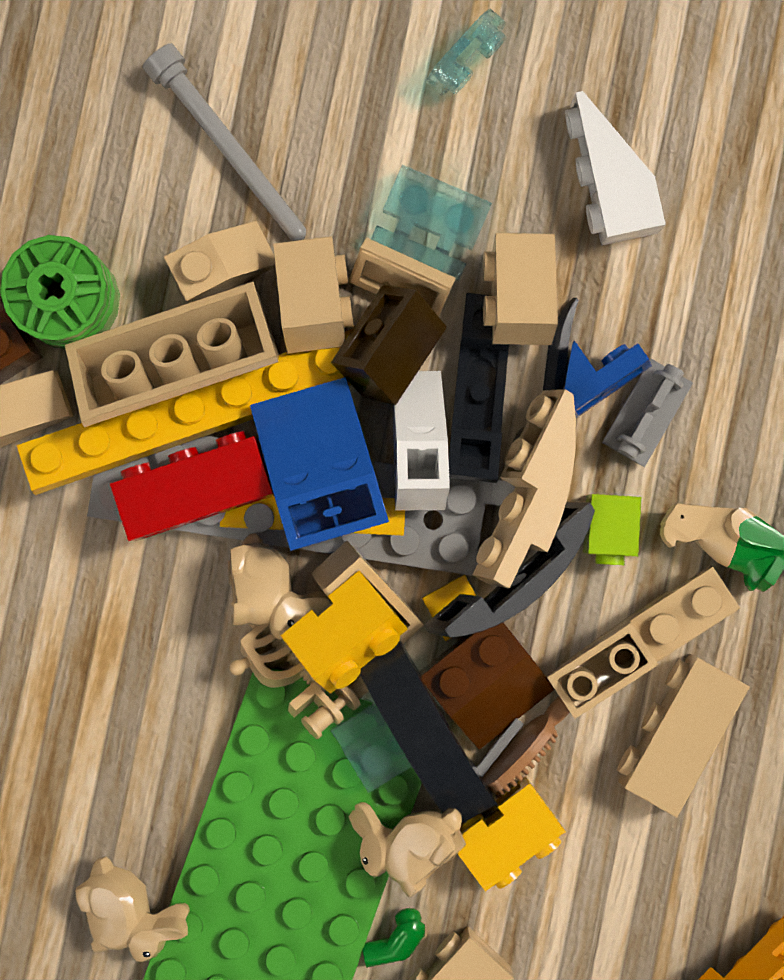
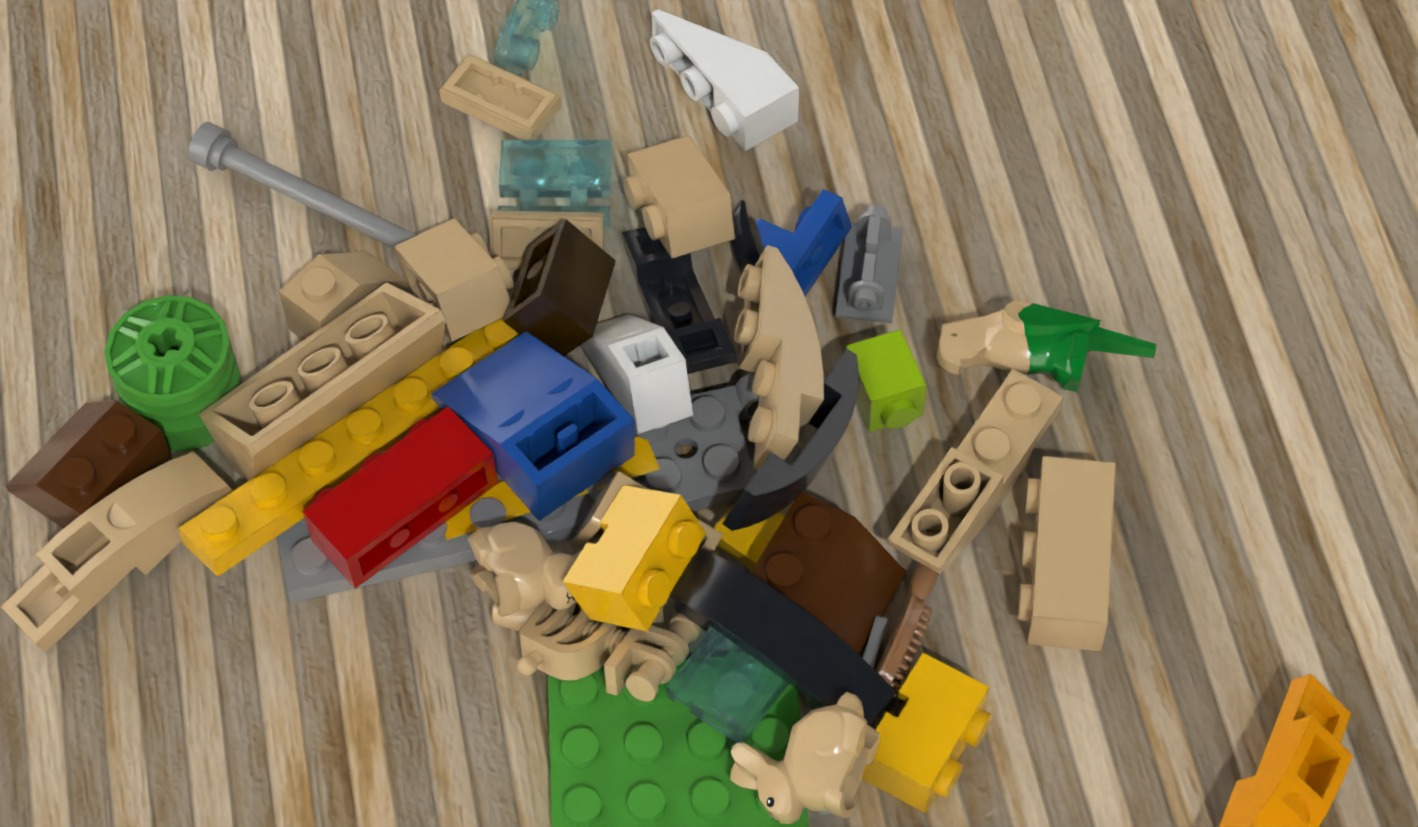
camera: 25 degrees left, 30 degrees down
(419, 114) = (500, 98): none -> tan plate

